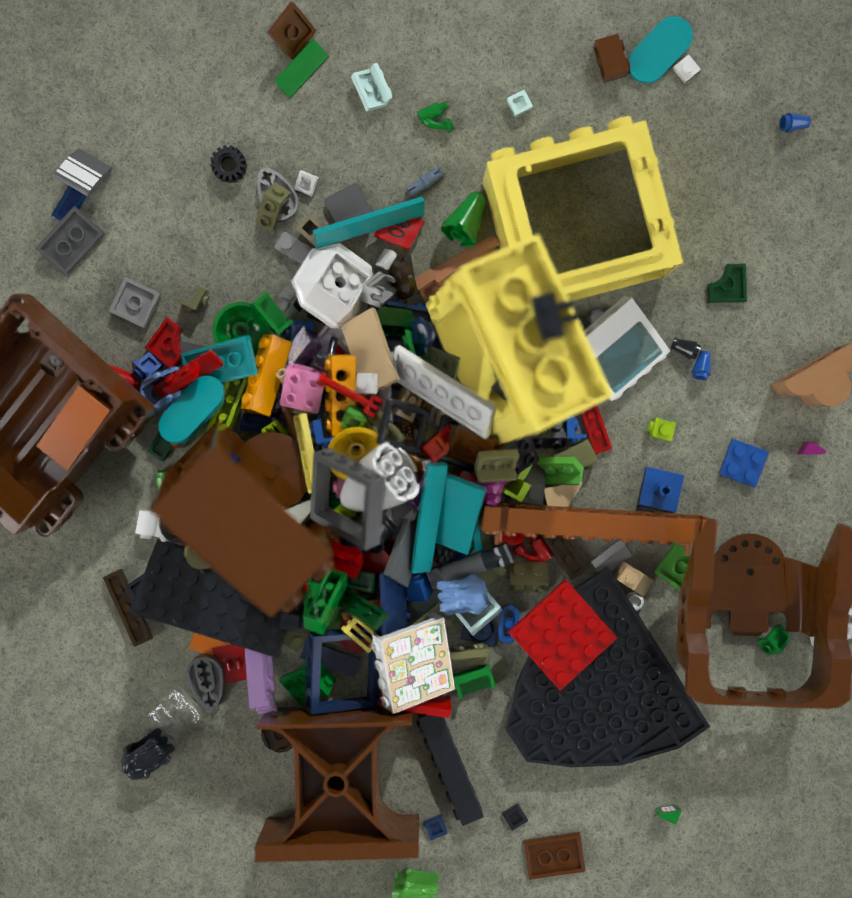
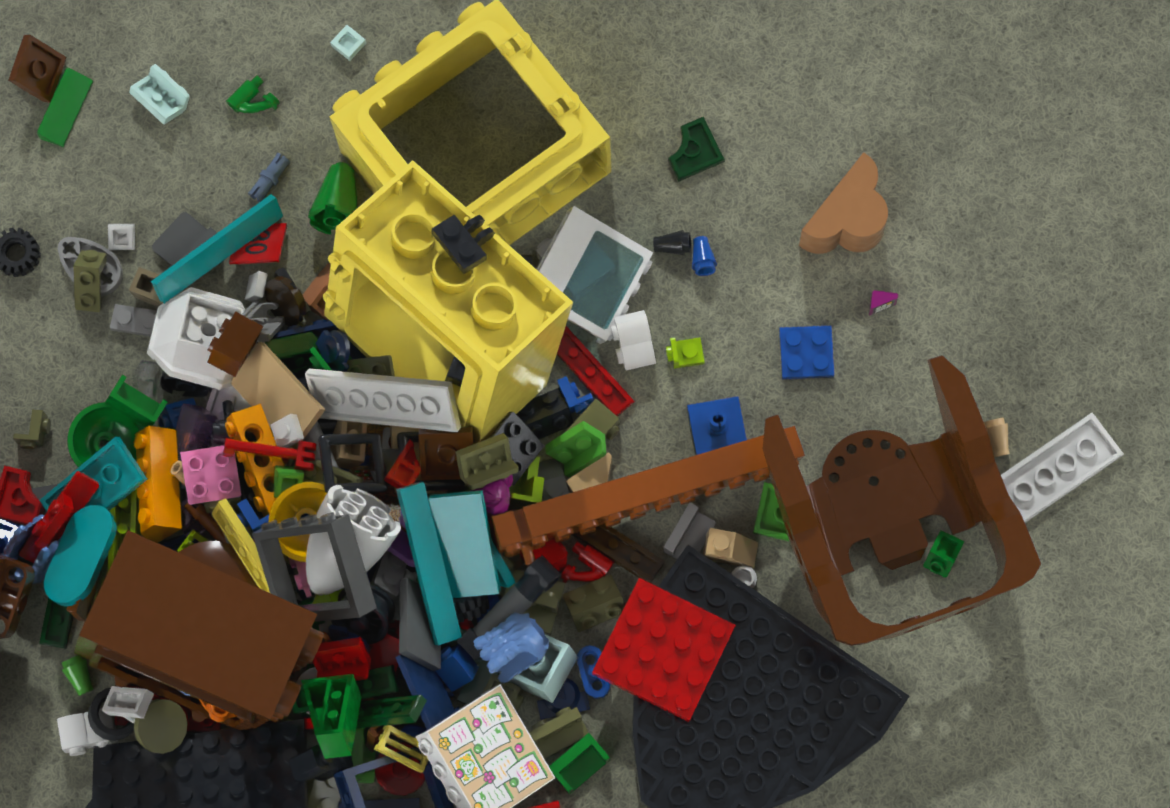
camera: 20 degrees left, 15 degrees down
(354, 303) = (234, 344): none -> reddish brown brick
(631, 408) = (634, 340): none -> white brick

